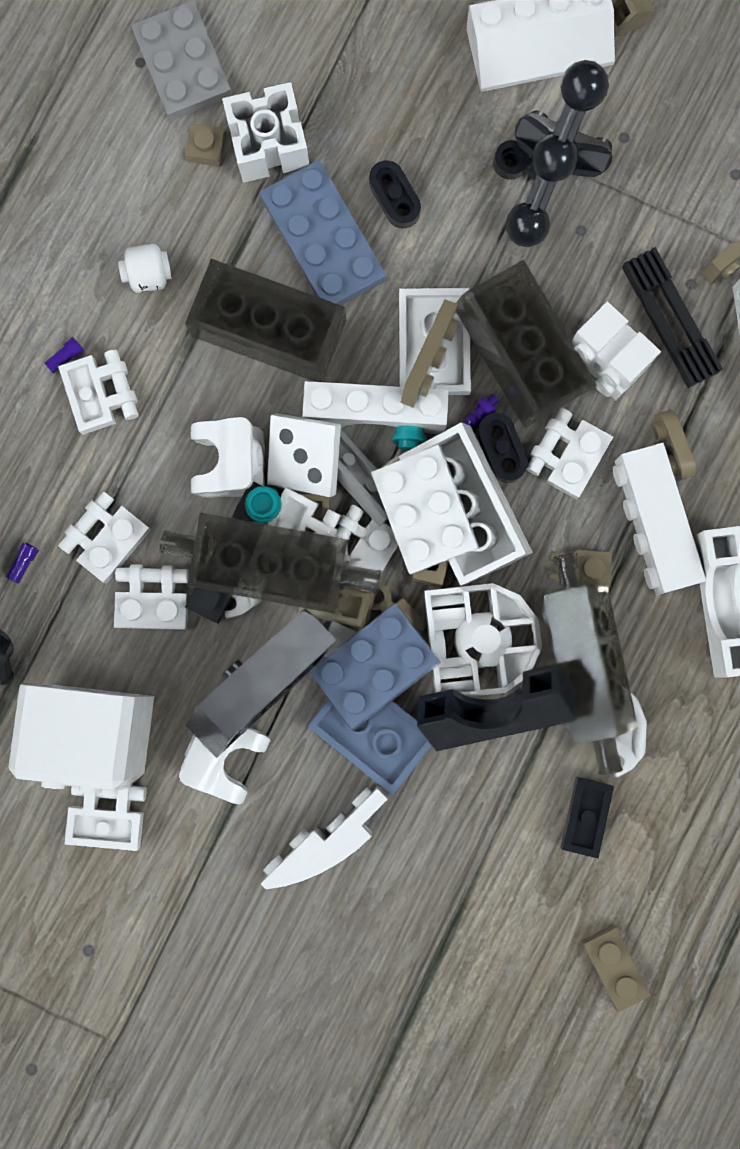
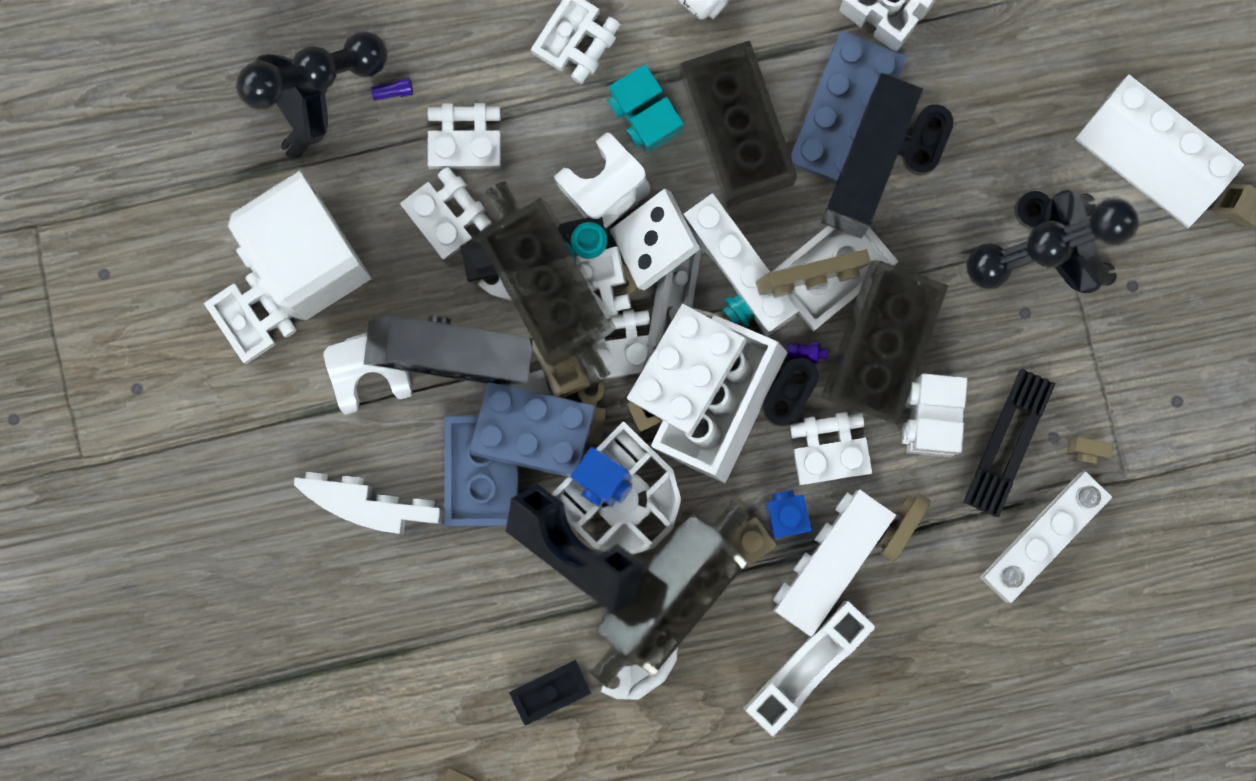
camera: 45 degrees right, 0 degrees up
(180, 379) = (641, 105): none -> teal piece
(376, 236) = (872, 155): none -> black brick
(459, 643) = (602, 479): none -> blue brick
(596, 525) = (787, 514): none -> blue brick

